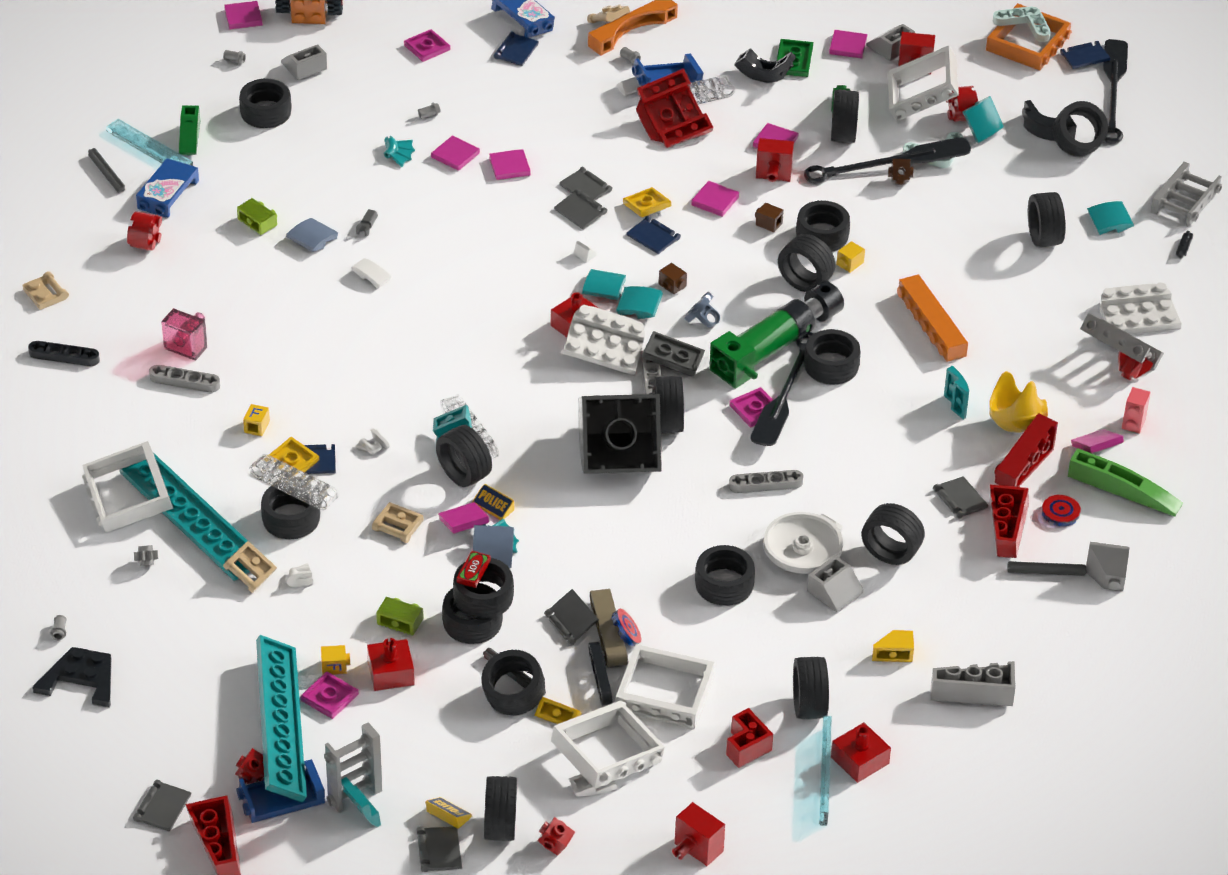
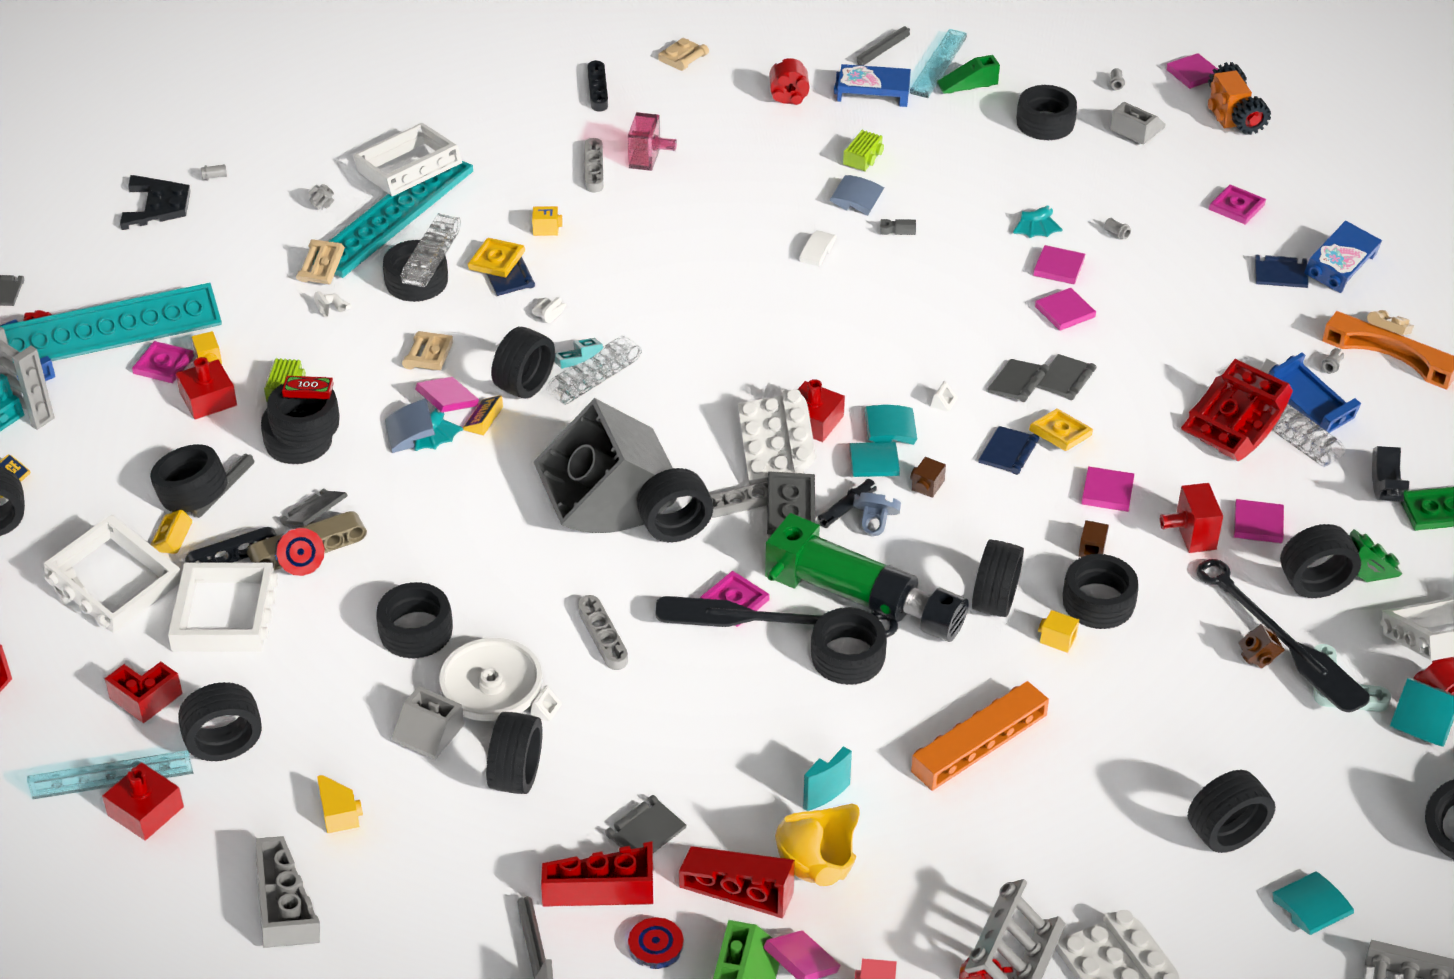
camera: 75 degrees right, 0 degrees up
(671, 314) = (845, 504): none -> black pin

